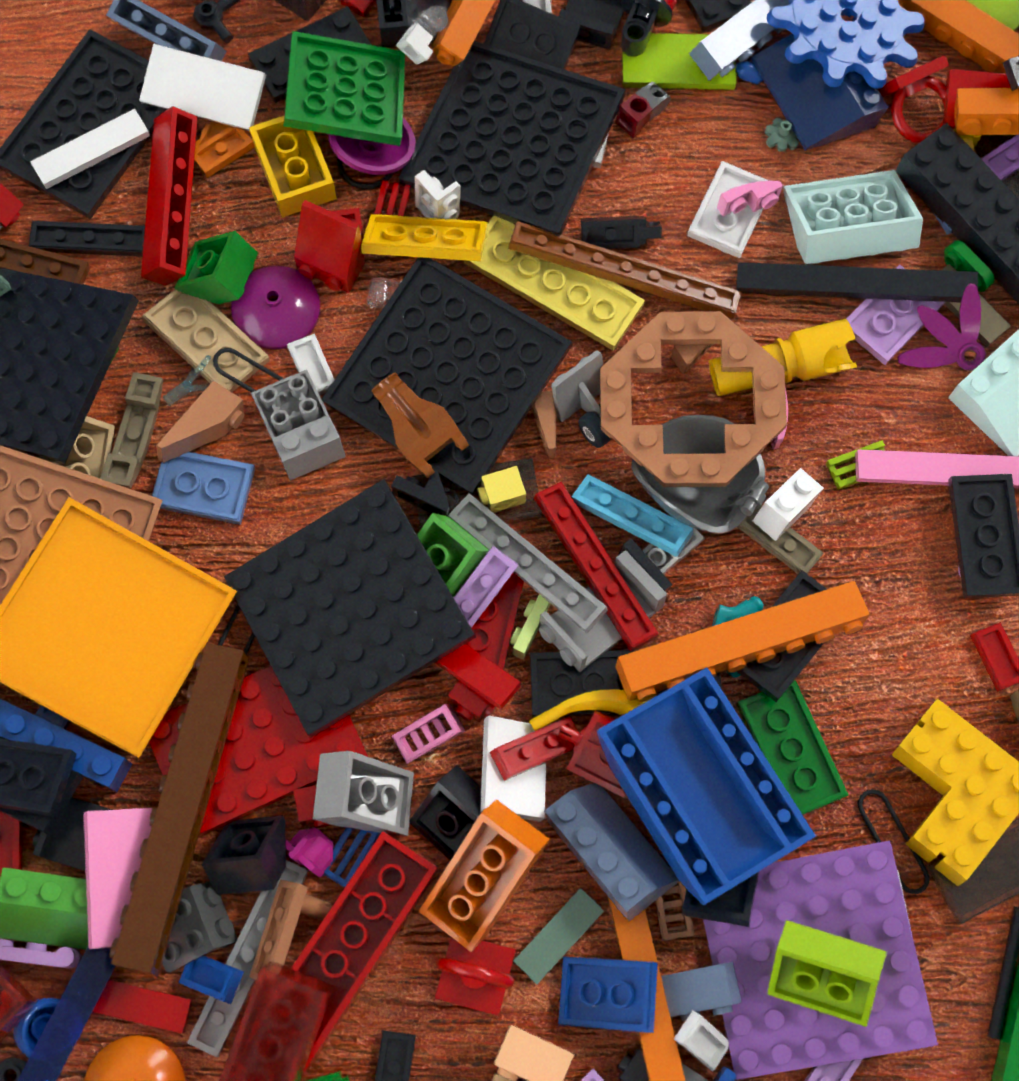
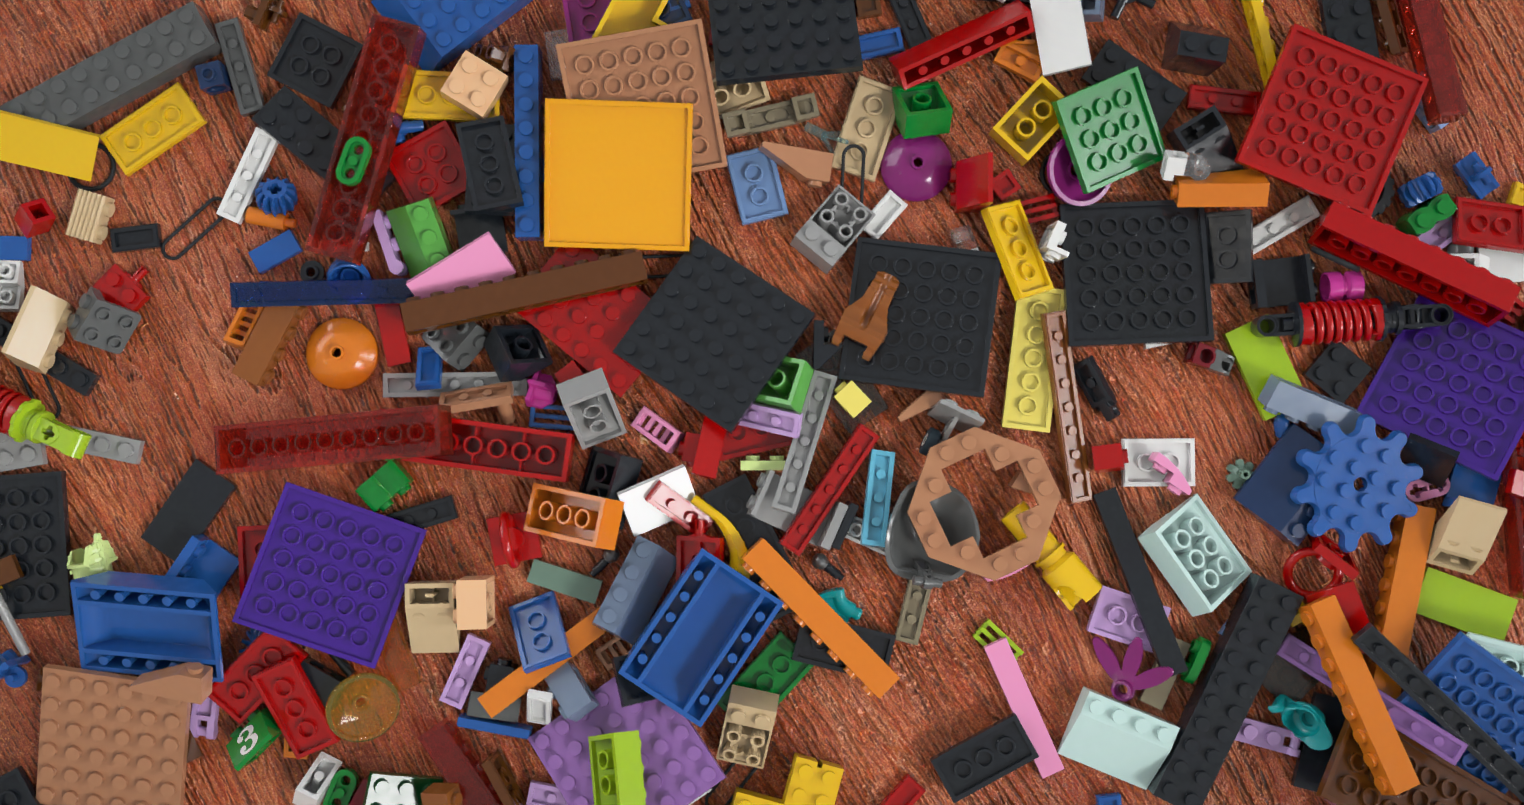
camera: 65 degrees right, 15 degrees up
(122, 273) = (881, 43): none -> blue tile
(553, 863) = (608, 557): none -> piece
(677, 616) = (821, 562): none -> piece
(702, 251) = (1109, 457): none -> red brick
(787, 504) = (938, 606): white brick -> none
(838, 790) = (747, 726): none -> tan slope

